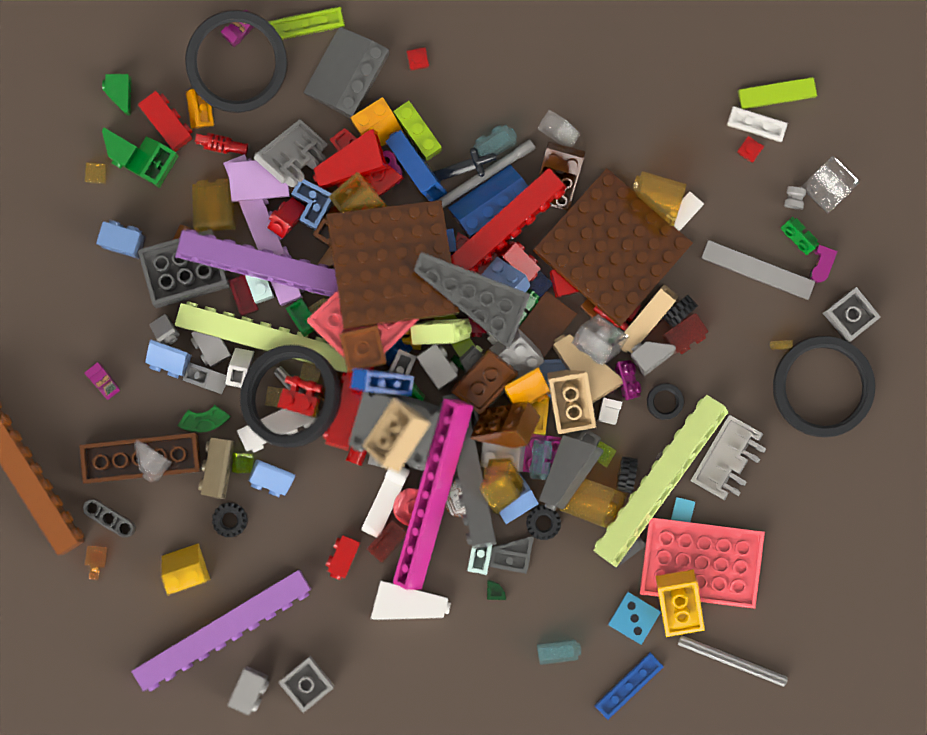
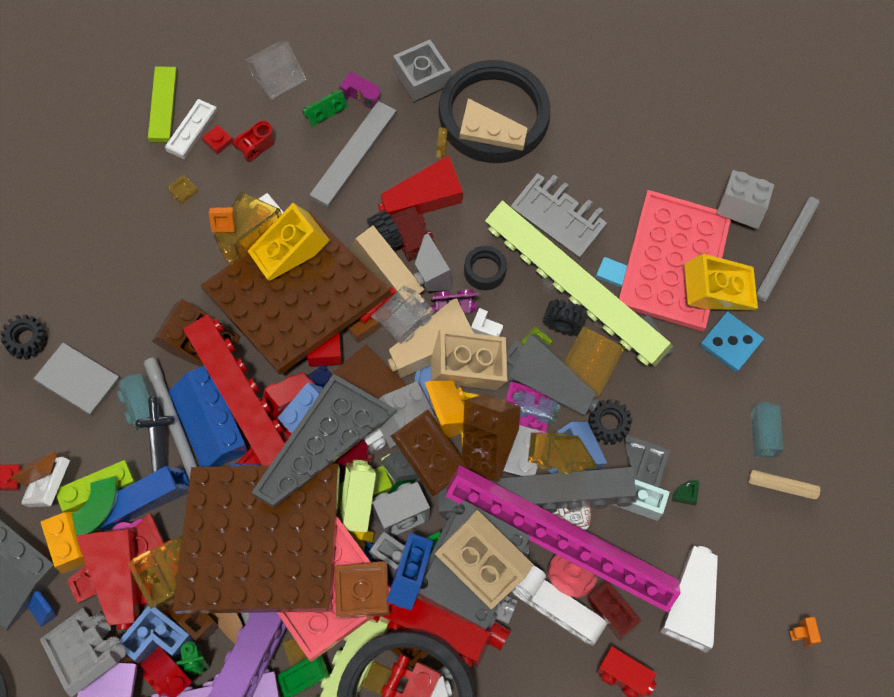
camera: 80 degrees left, 20 degrees down
(300, 235) = (192, 660): none -> green hinge
(321, 114) = (41, 609): none -> blue slope
(396, 692) = (806, 632): none -> orange tile
(398, 137) = (98, 507): none -> green tile
(415, 91) = (42, 491): none -> white tile
(424, 81) = (36, 469): none -> dark orange slope
(507, 90) = (77, 379): none -> light grey tile
(515, 665) = (784, 484): none -> tan axle
(535, 27) = (18, 326): none -> black tyre
(558, 129) = (138, 329): clear slope -> none
(628, 686) = (810, 361): blue tile -> none
(651, 233) = (288, 242): none -> yellow slope
(653, 175) = (222, 219): none -> orange tile
(695, 131) = (182, 189): none -> clear yellow tile
(728, 337) = (426, 190): none -> red slope
(751, 181) = (253, 143): none -> red piece
(769, 618) = (745, 199): none -> light grey brick
(795, 197) = (282, 103): light grey wheel -> none
(799, 386) = (490, 127): none -> tan wing

